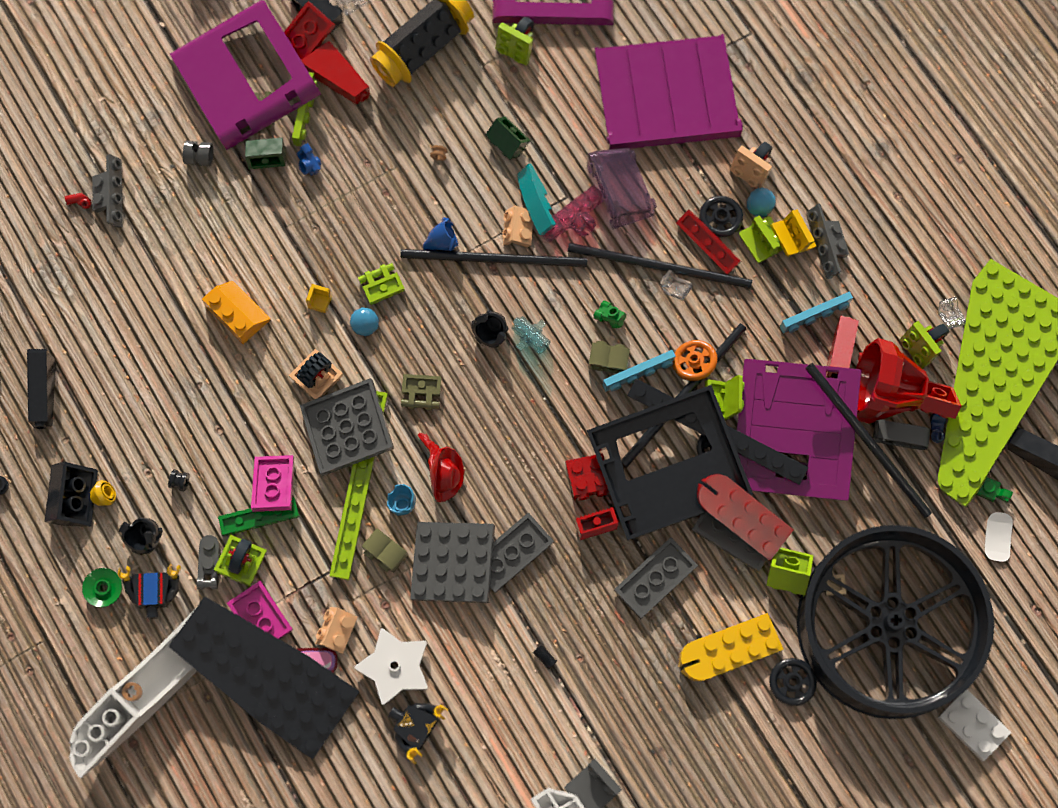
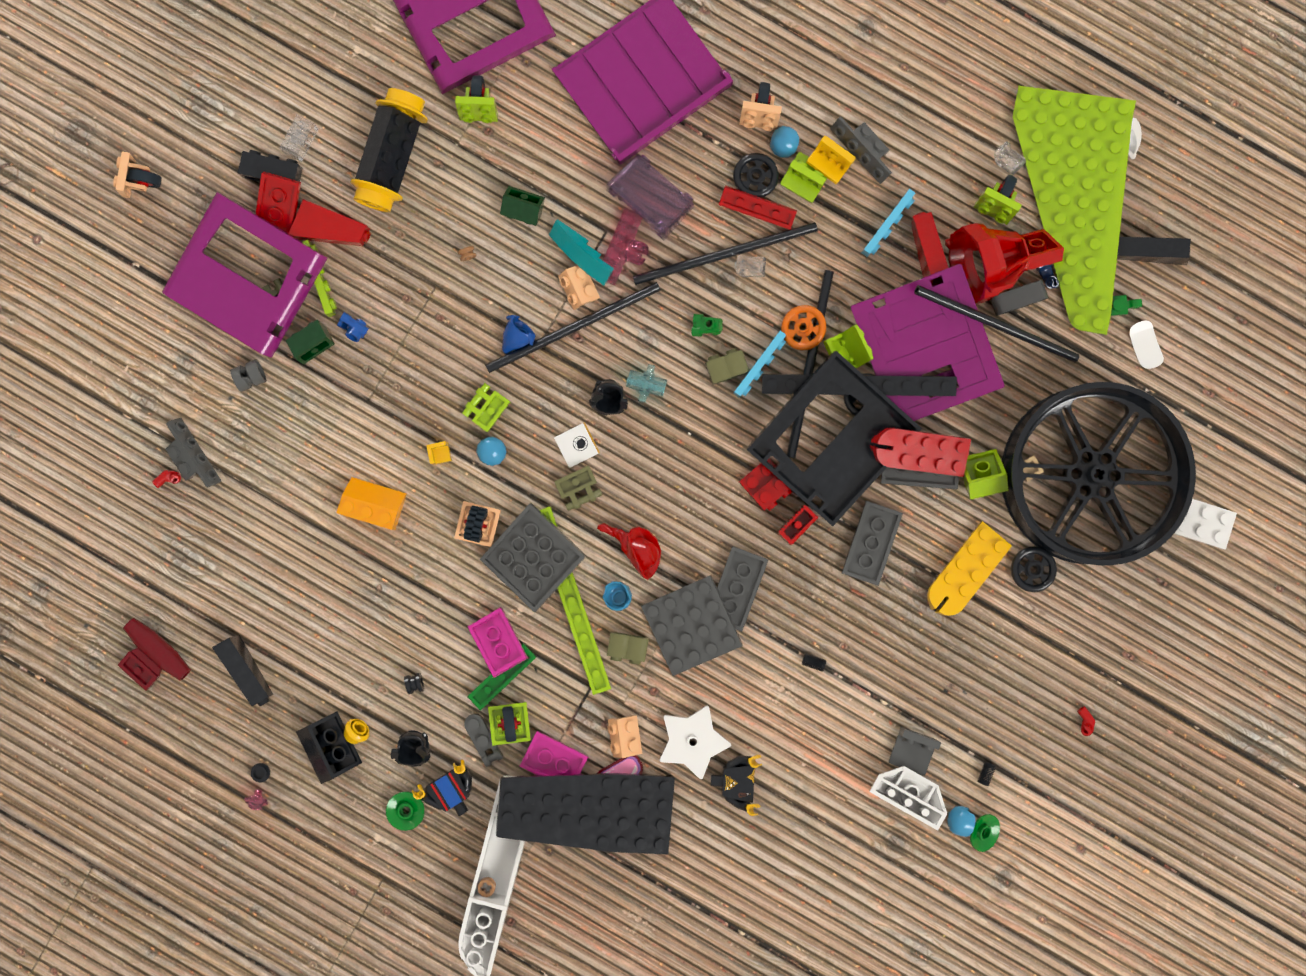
camera: 25 degrees left, 15 degrees up
(440, 356) = (576, 445): none -> white sticker

